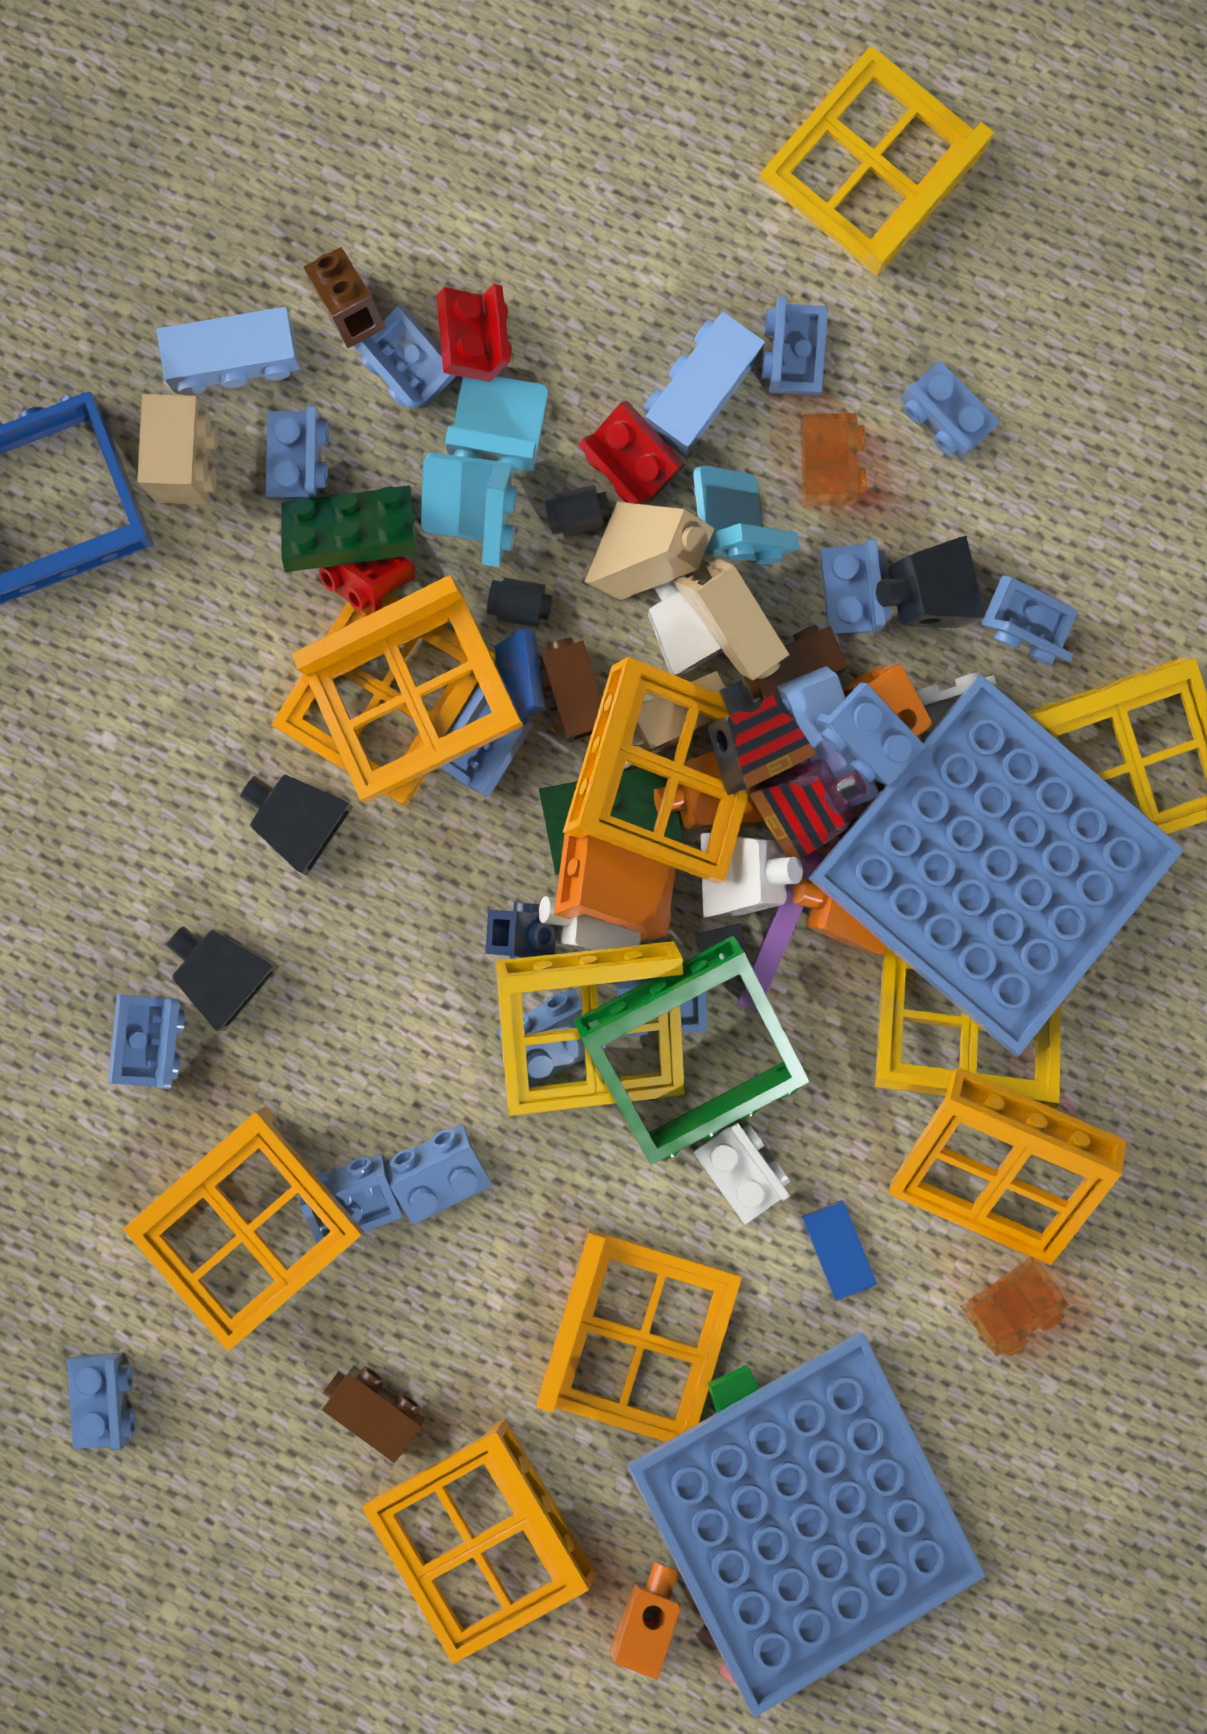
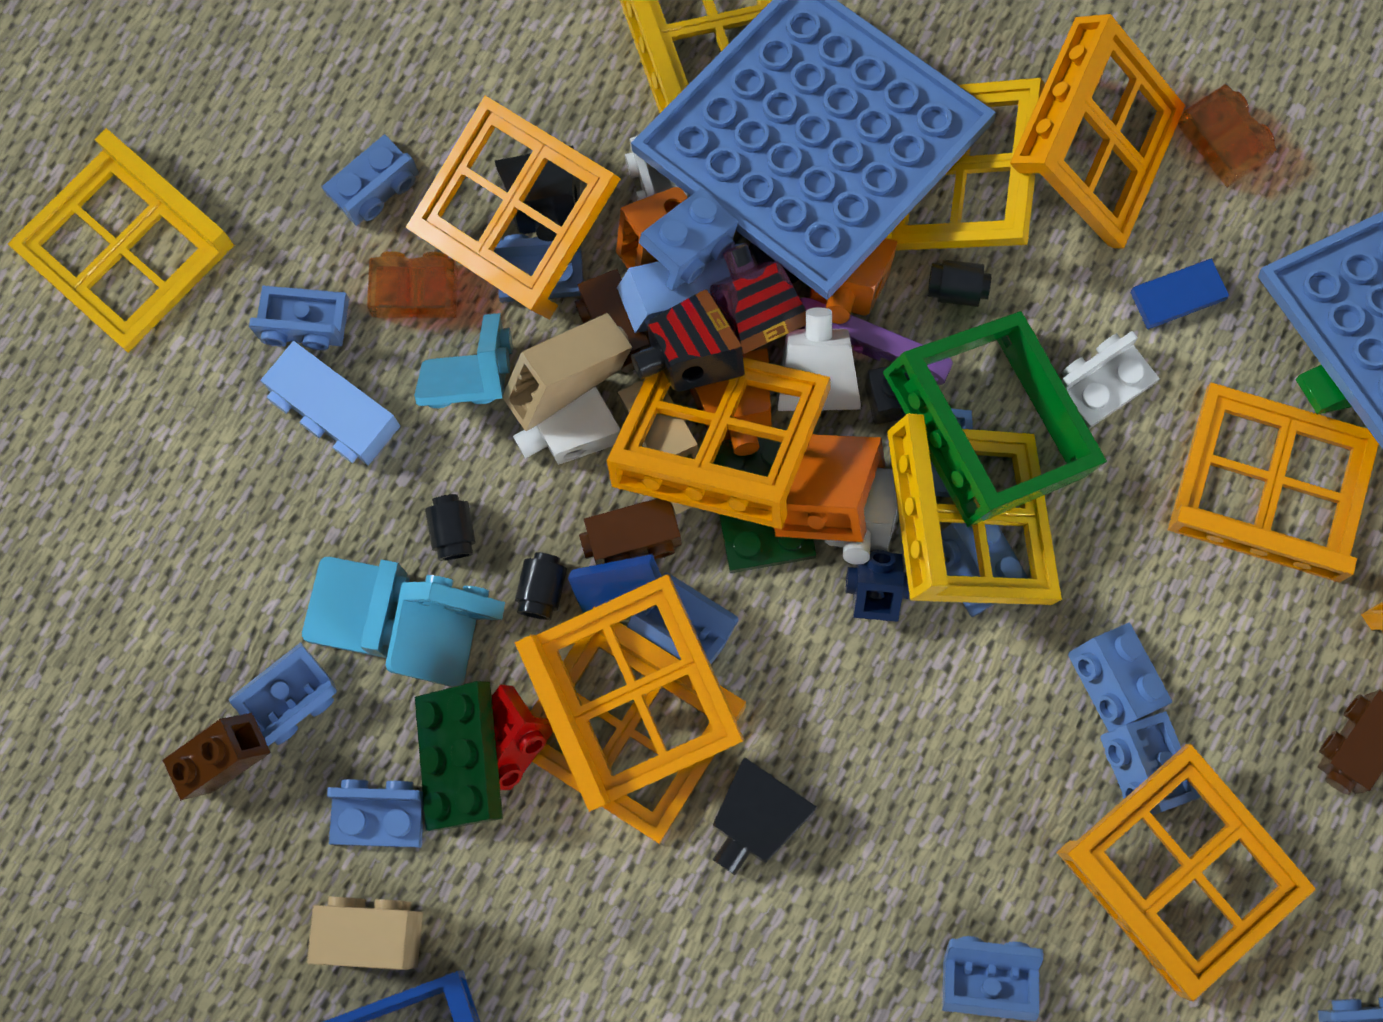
camera: 85 degrees left, 10 degrees down
(218, 974) = (920, 899): black torso -> none
(228, 350) = (262, 883): light blue brick -> none
(473, 332) = (262, 624): red bracket -> none
(631, 455) = (398, 473): red bracket -> none
(647, 549) = (493, 453): tan slope -> none
(844, 1020) = (959, 283): none -> black brick
(856, 520) = (480, 255): none -> light orange window
(1030, 619) = (578, 107): medium blue bracket -> none

